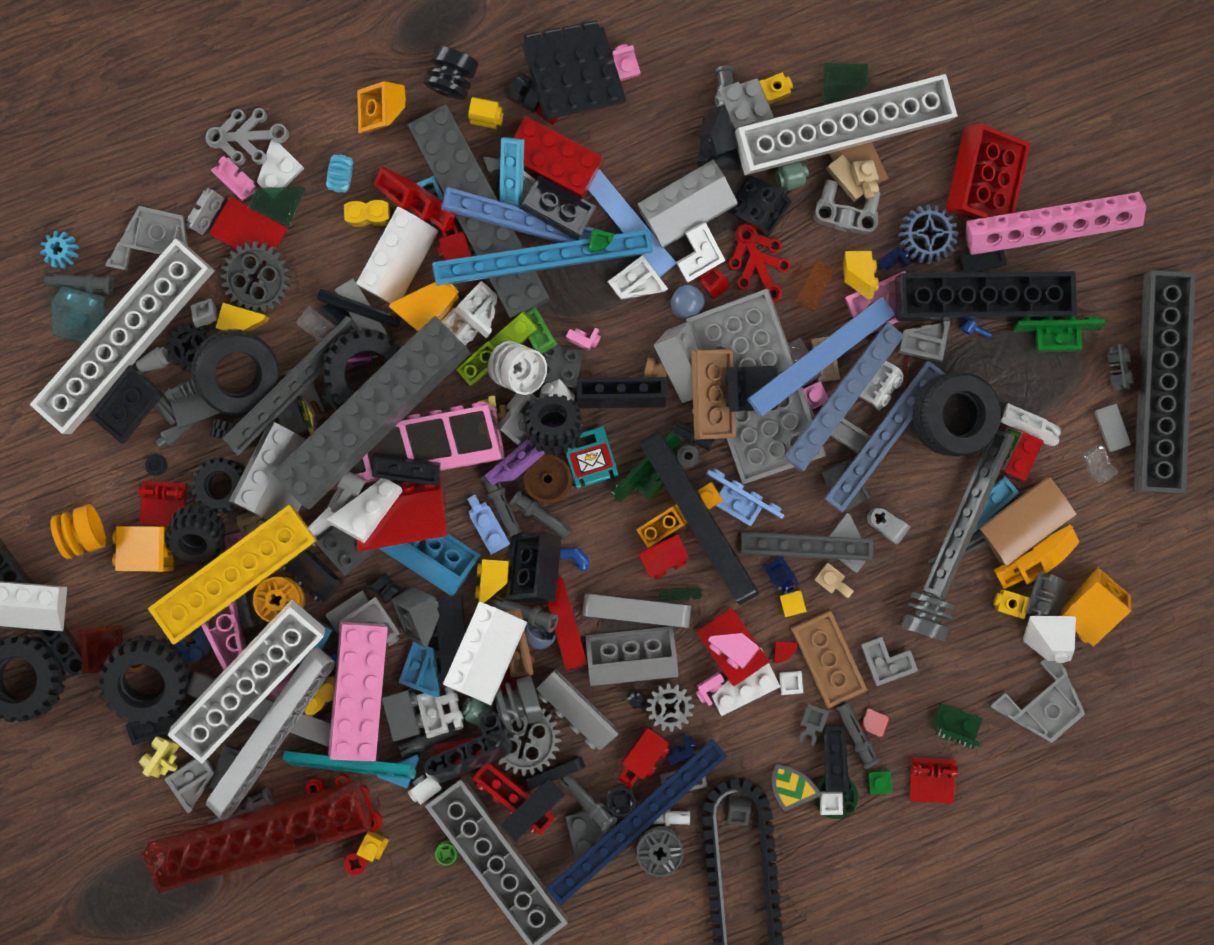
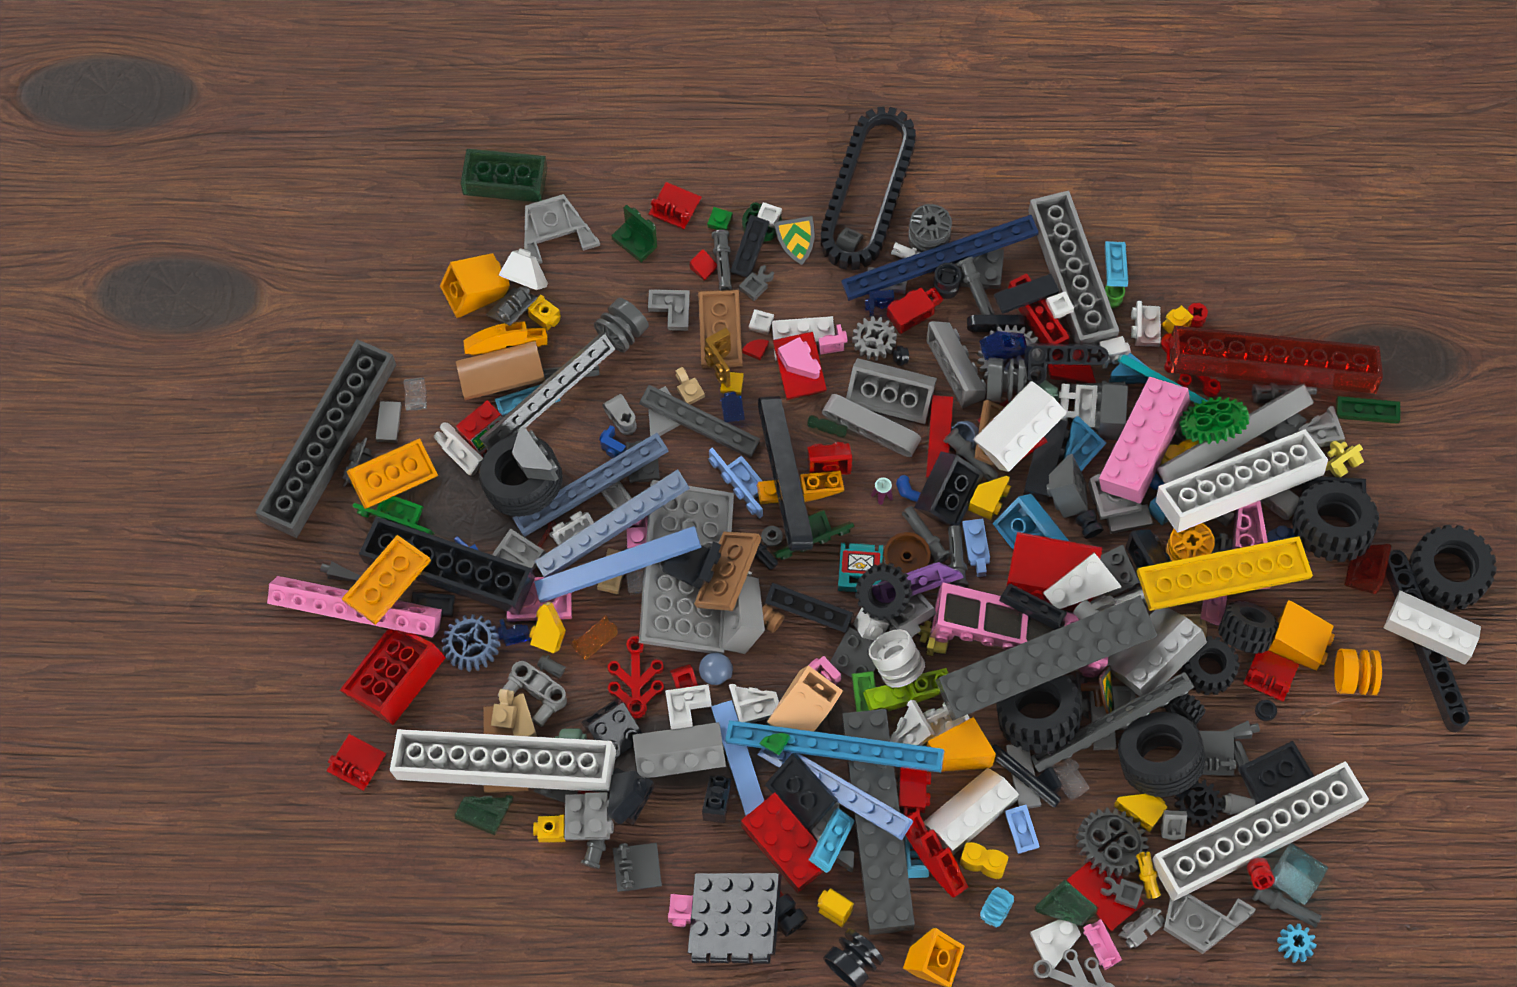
camera: 155 degrees left, 20 degrees down
(108, 294) = (1260, 873): none -> red wheel
(151, 822) = (1368, 409): none -> dark green plate
(212, 257) = (1148, 875): none -> yellow pin
(227, 233) = (1126, 893): none -> dark grey plate
(293, 735) = (1214, 420): none -> green gear
(343, 257) = (1022, 829): none -> light blue plate
(403, 832) = (1147, 325): none -> white bracket
(455, 887) = (1116, 264): none -> medium azure tile
(493, 810) = (1060, 305): none -> white tile
(534, 741) = (1003, 345): none -> clear blue slope
(588, 293) = (805, 701): none -> light nougat slope
(599, 544) = (882, 487): none -> piece
(633, 172) = (716, 799): none -> black slope
(681, 86) = (637, 867): none -> dark grey hinge
(821, 628) = (716, 348): none -> pearl gold bracket
(842, 242) = (551, 666): none -> dark grey pin
(879, 484) = (612, 447): none -> blue bracket
(952, 424) = (532, 457): none -> slope
(982, 81) = (356, 762): none -> red hinge
(1036, 252) = (386, 579): none -> light orange tile
(1082, 367) = (392, 473): none -> light orange tile
(1086, 255) = (338, 572): none -> dark grey piece
(1122, 741) = (504, 175): none -> clear green brick

